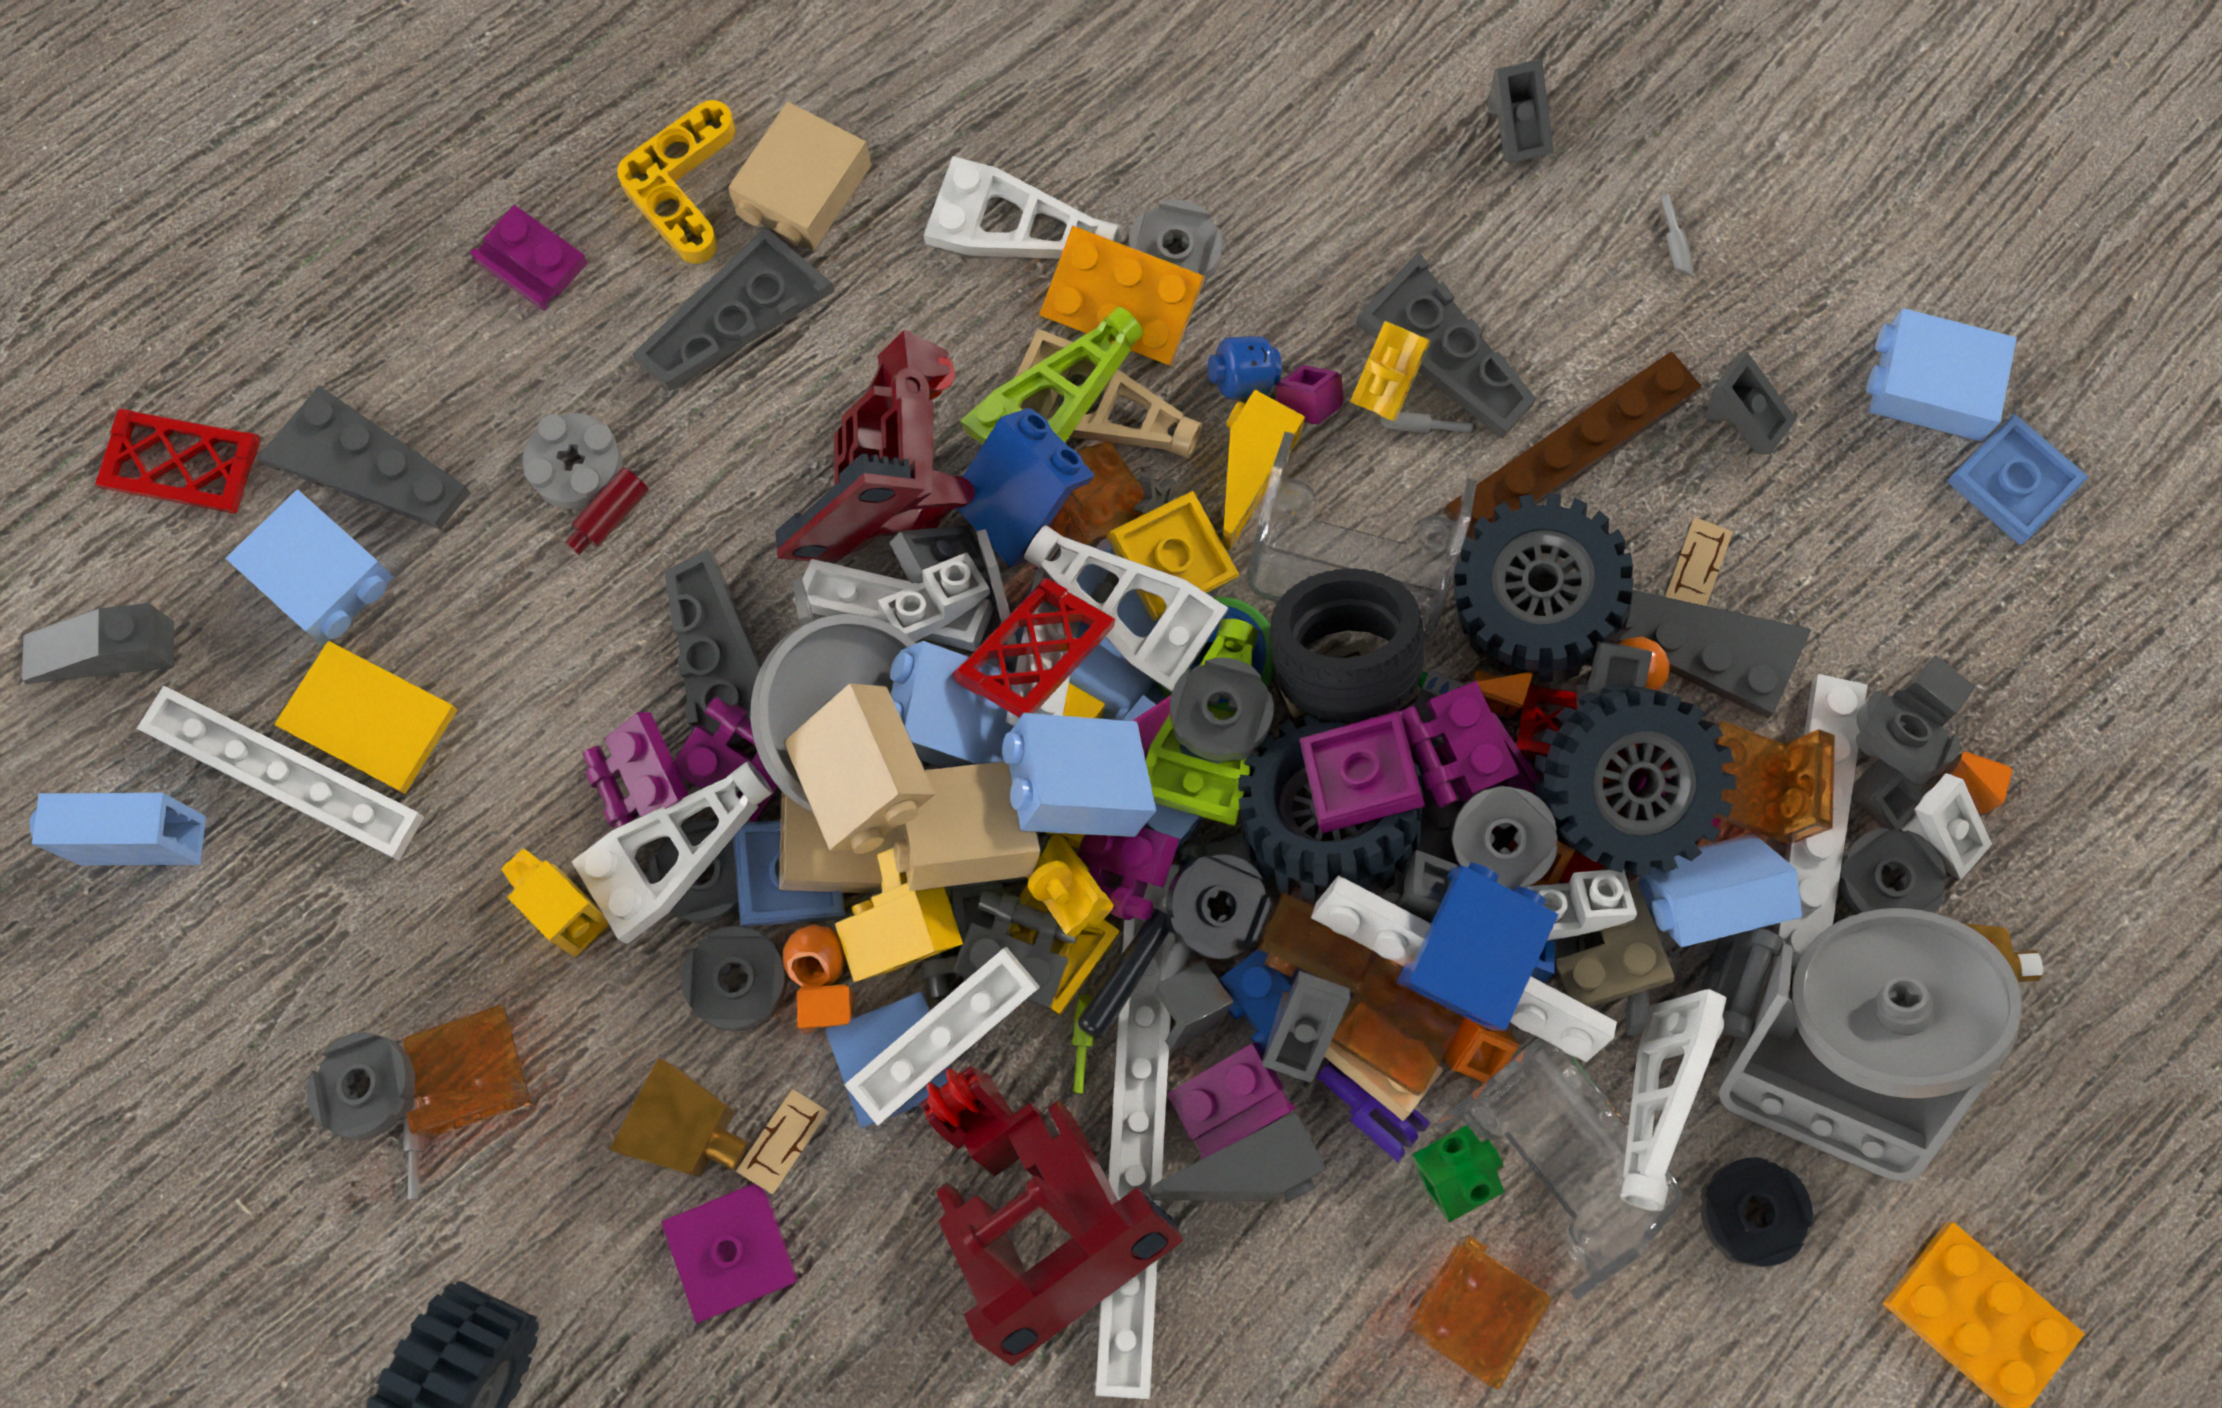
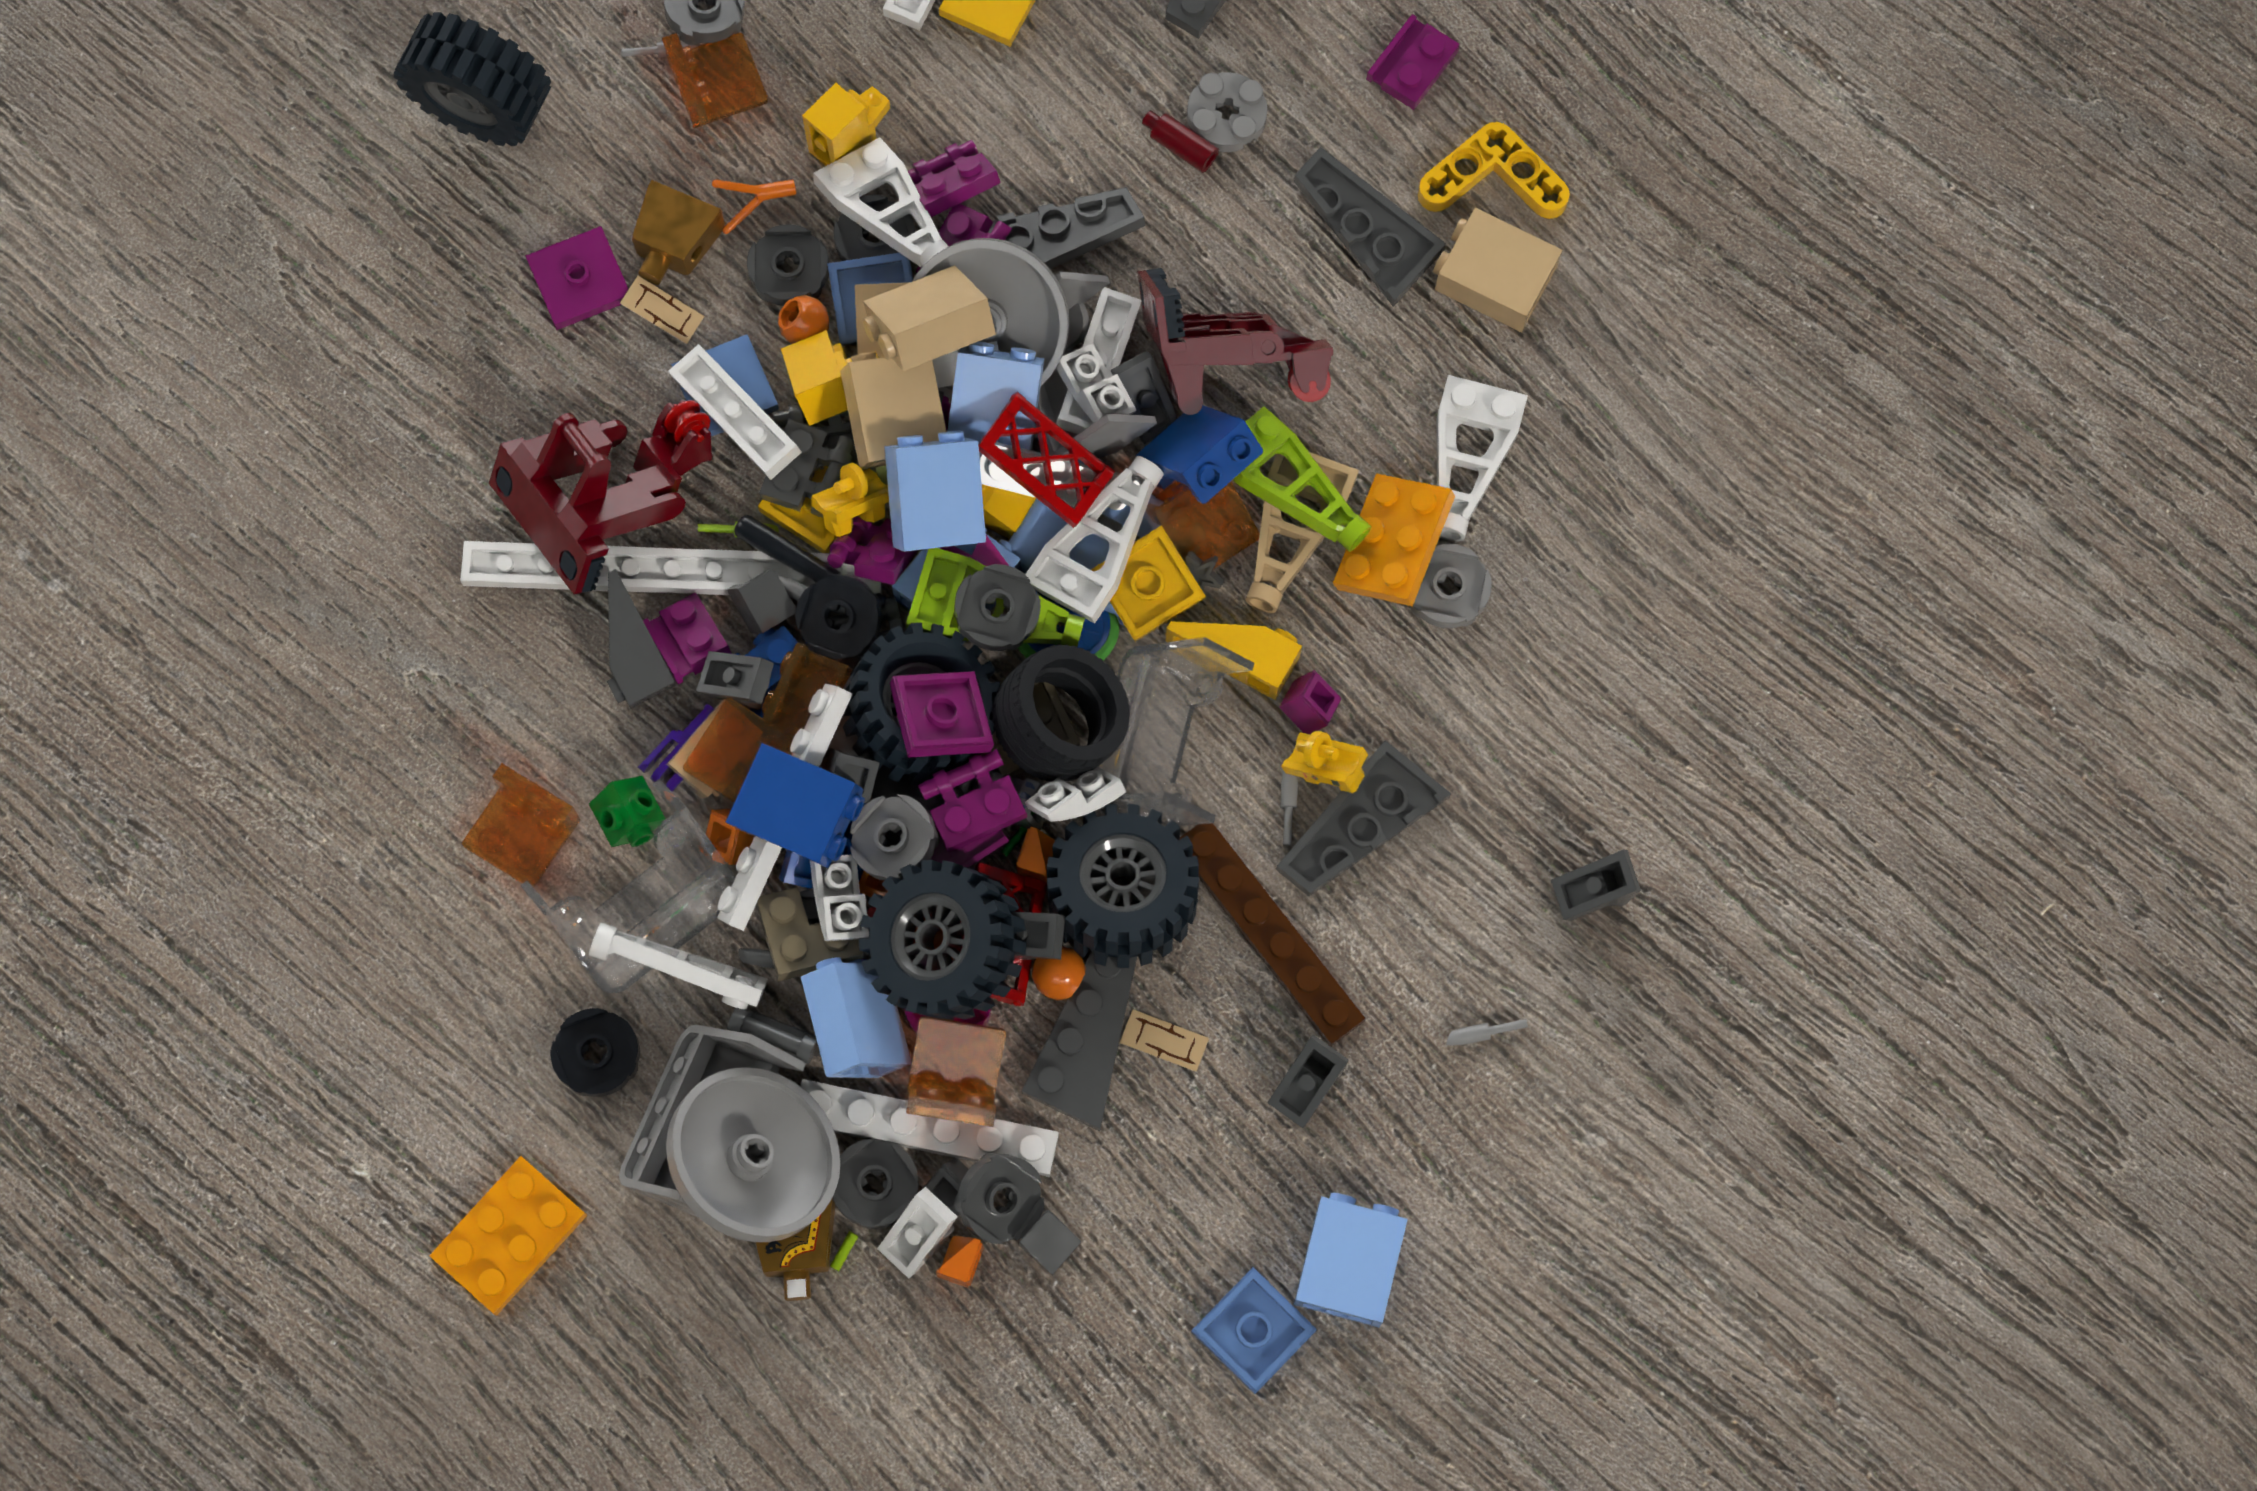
camera: 85 degrees right, 0 degrees up
(630, 1014) = (762, 192): none -> orange plant
(824, 1007) = (762, 330): orange slope -> none
(1244, 366) = (1330, 643): blue head -> none
(1451, 630) = (1064, 801): none -> white slope
(1963, 915) = (843, 1251): none -> lime piece

